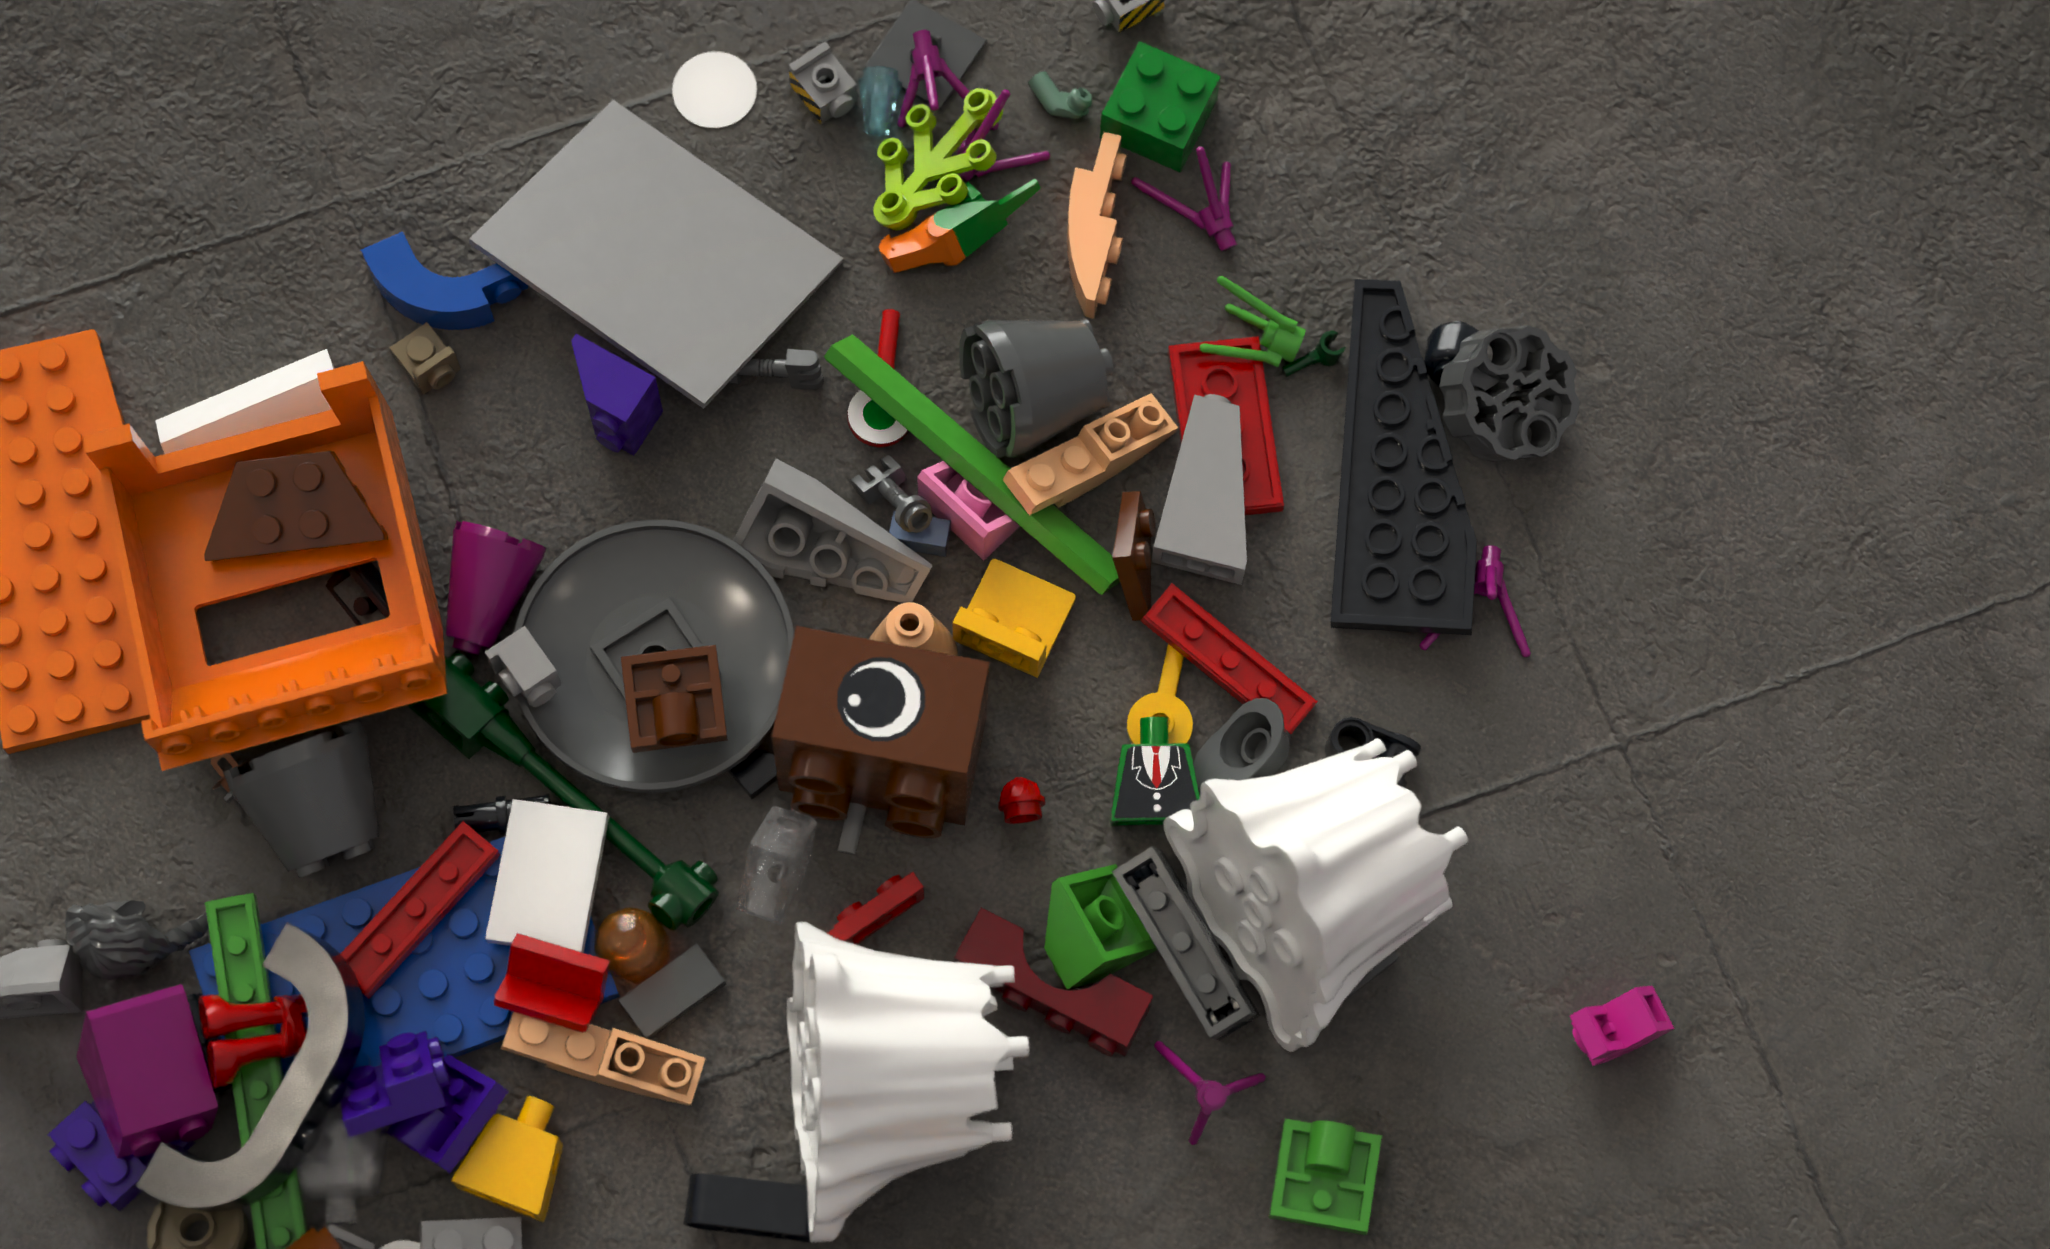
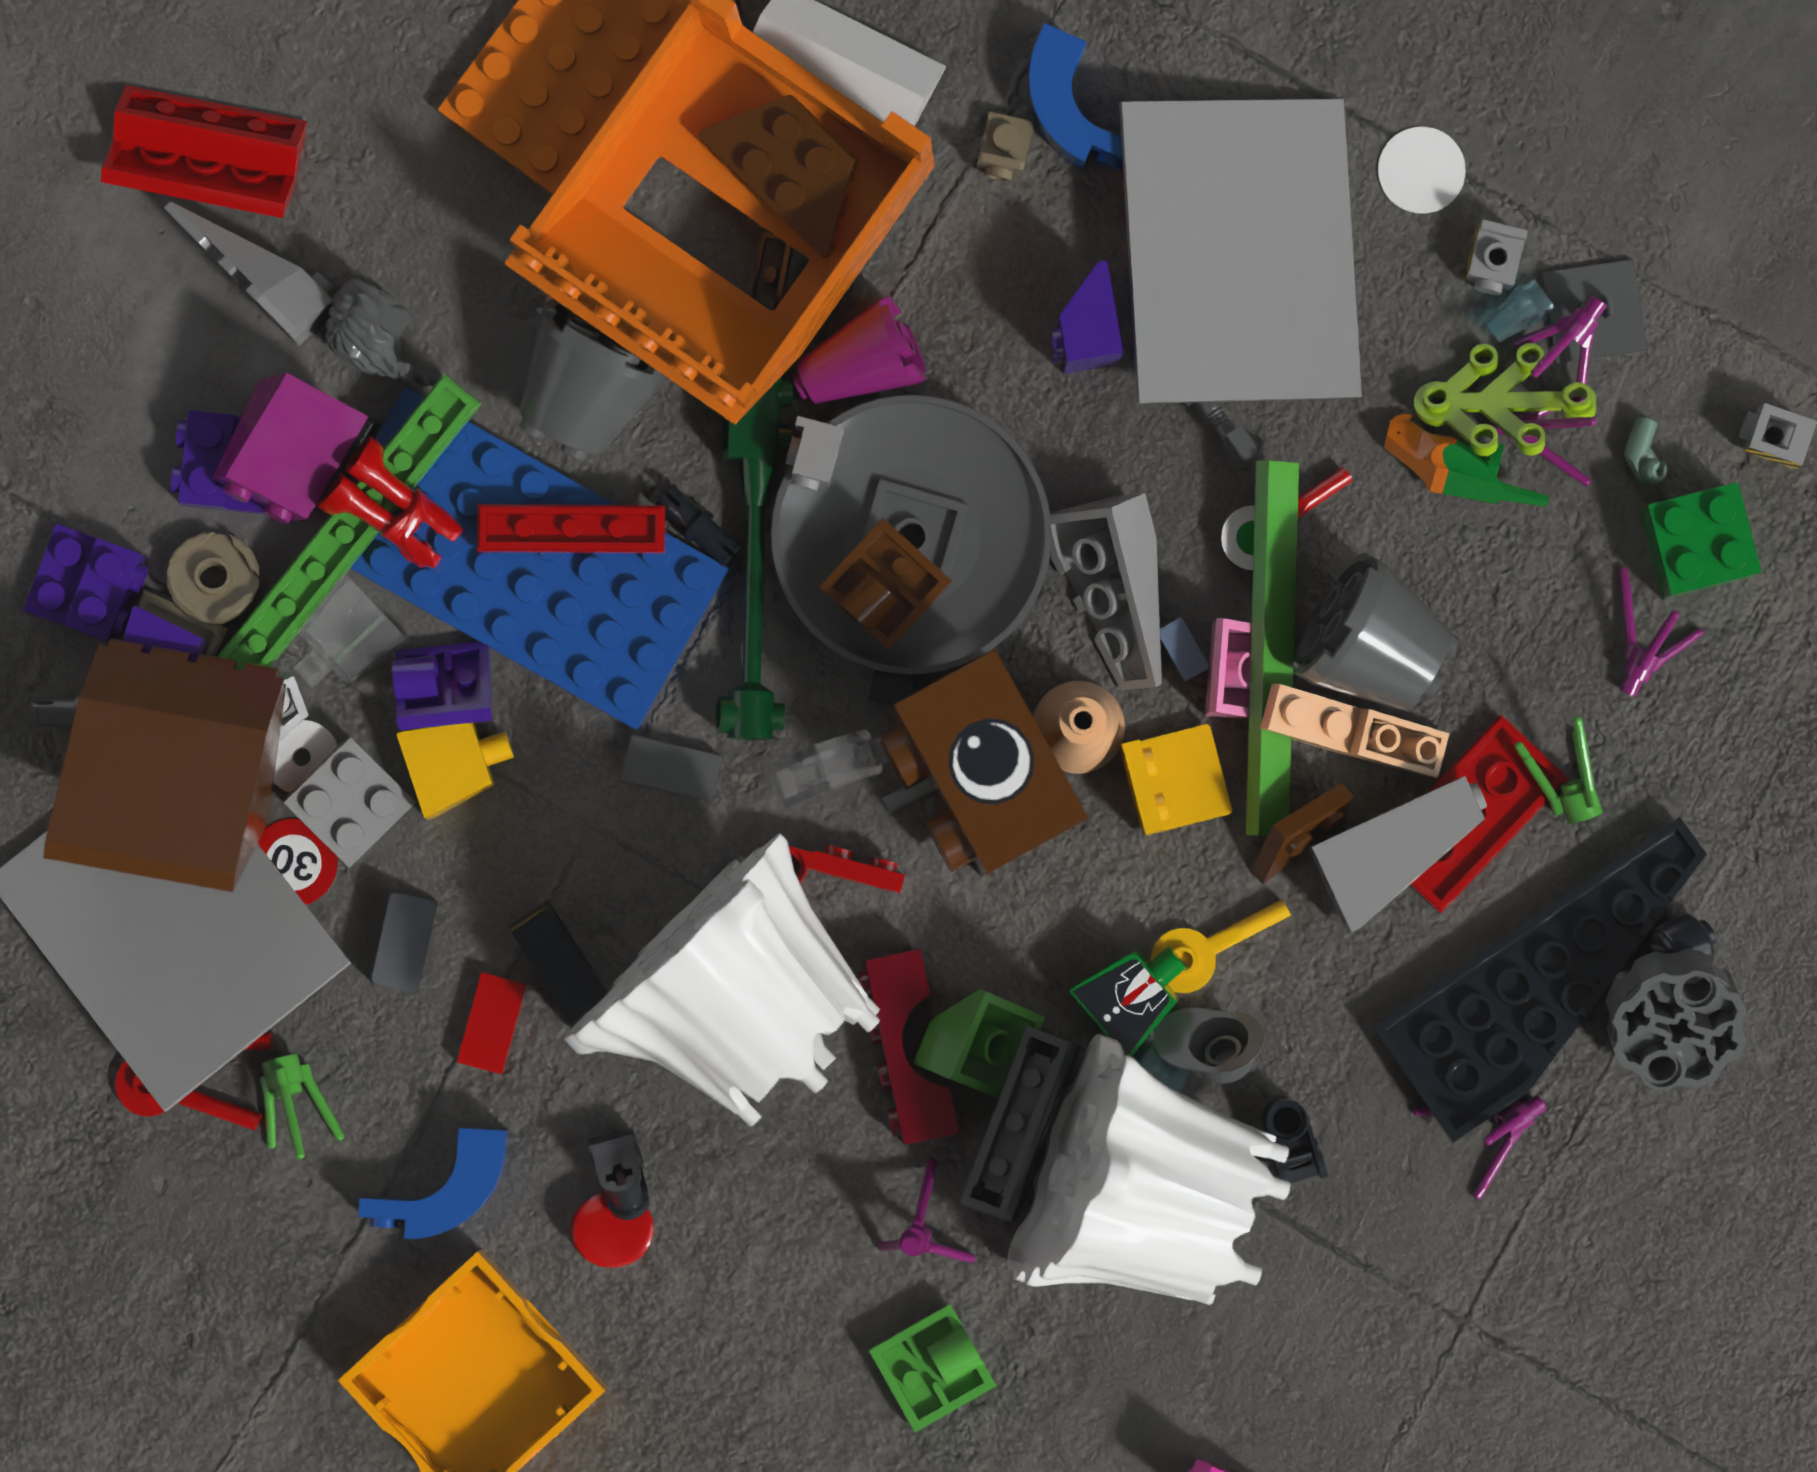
camera: 45 degrees right, 15 degrees up
(302, 1099) = (377, 578): arch -> none
(399, 1088) = (425, 635): dark purple plate -> none
(547, 874) = (675, 606): white tile -> none
(552, 983) = (596, 682): red panel -> none
(608, 1058) = (581, 760): light nougat slope -> none
(632, 943) = (680, 708): clear orange hair -> none
(912, 512) = (1188, 636): dark grey hinge -> none
(1021, 801) = (1033, 905): red plate -> none
(1090, 225) = (1539, 578): light nougat slope -> none
(1225, 656) = (1276, 971): red tile -> none
(1320, 354) = (1589, 835): dark green hand -> none

